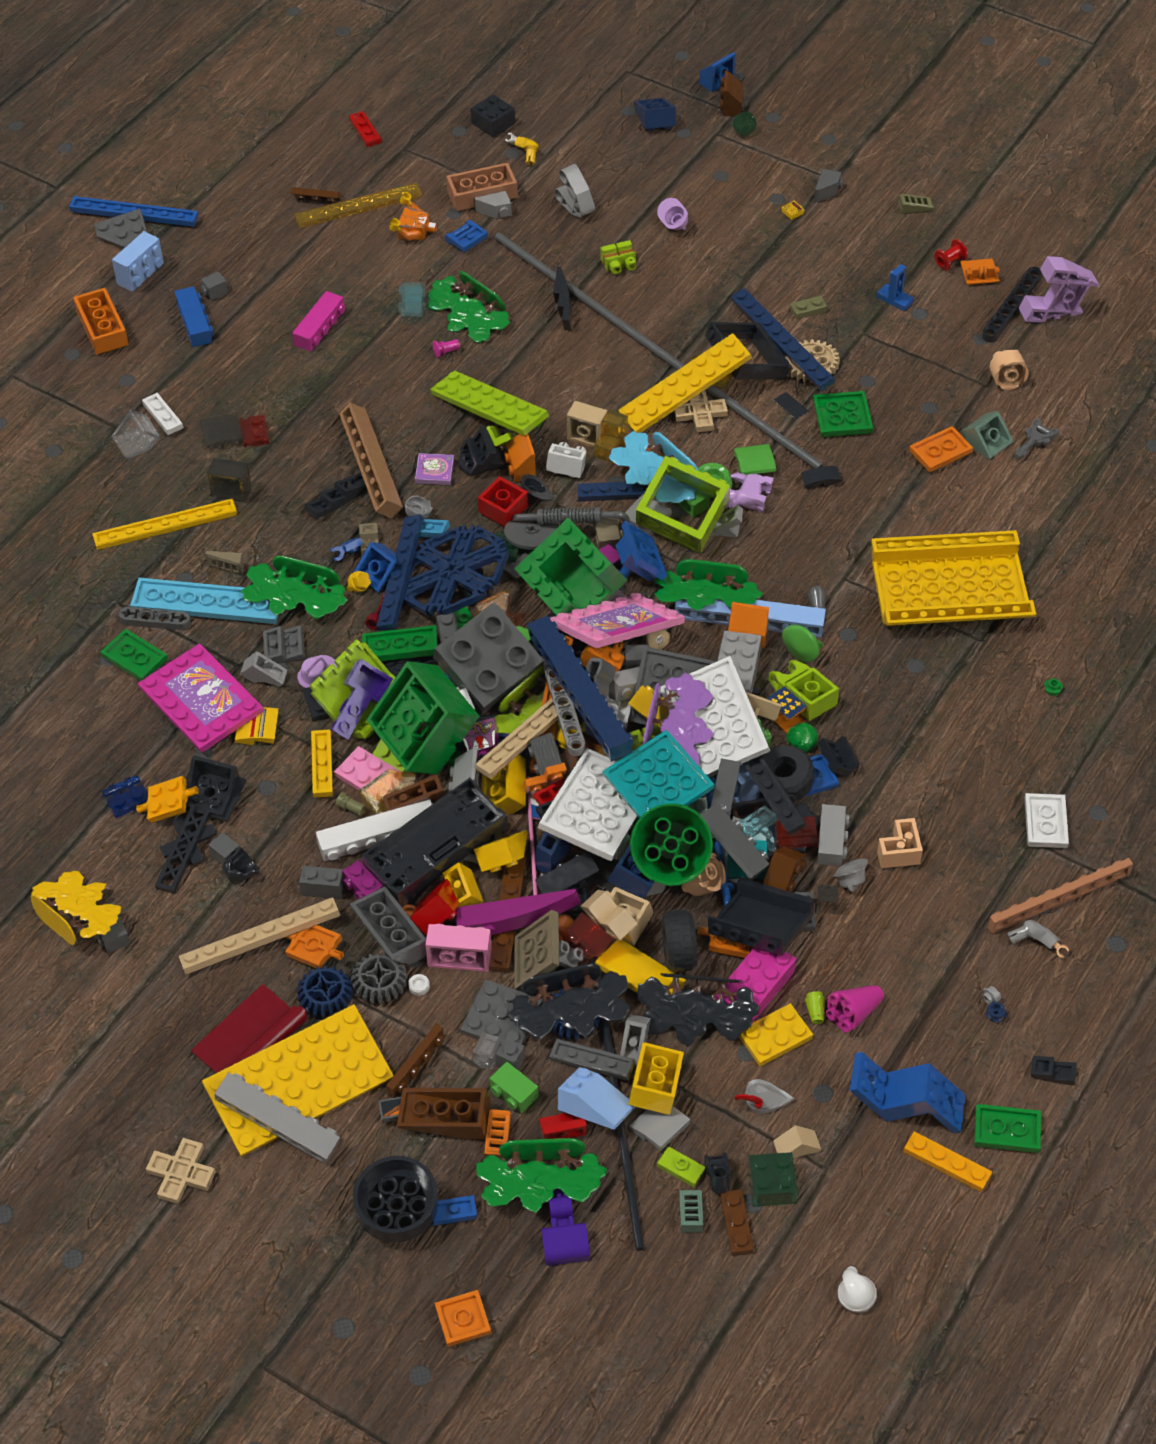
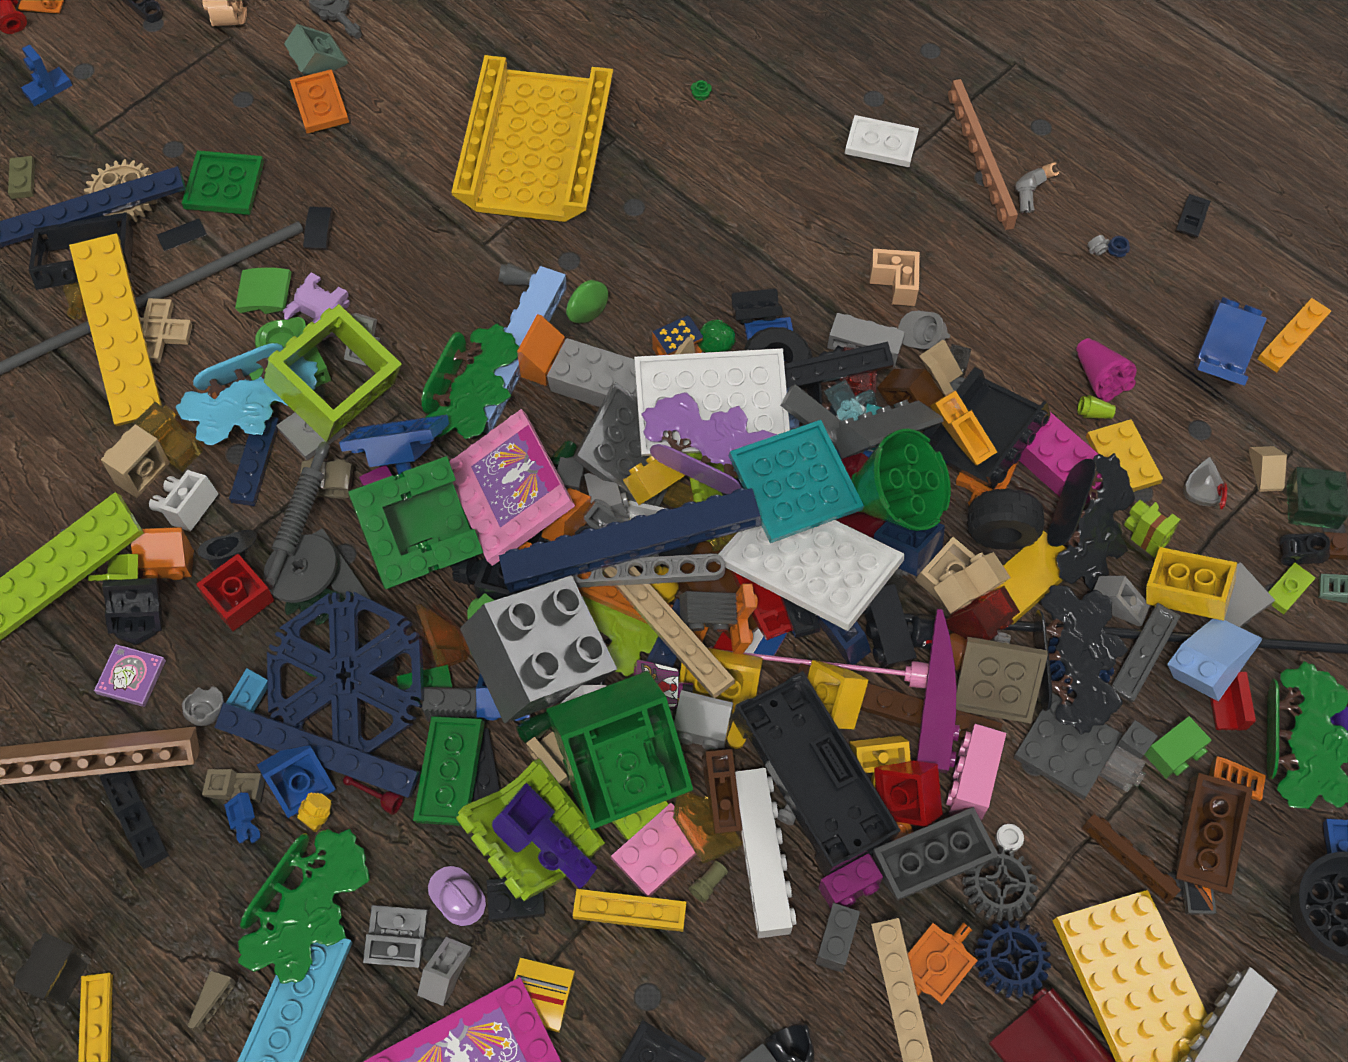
camera: 80 degrees left, 10 degrees up
(702, 1049) = (1150, 527): none -> lime hips
(753, 898) = (964, 428): none -> light orange slope
(805, 875) = (941, 366): none -> tan panel
(808, 686) = (648, 312): lime brick -> none
(1007, 1128) = (1261, 272): green plate -> none

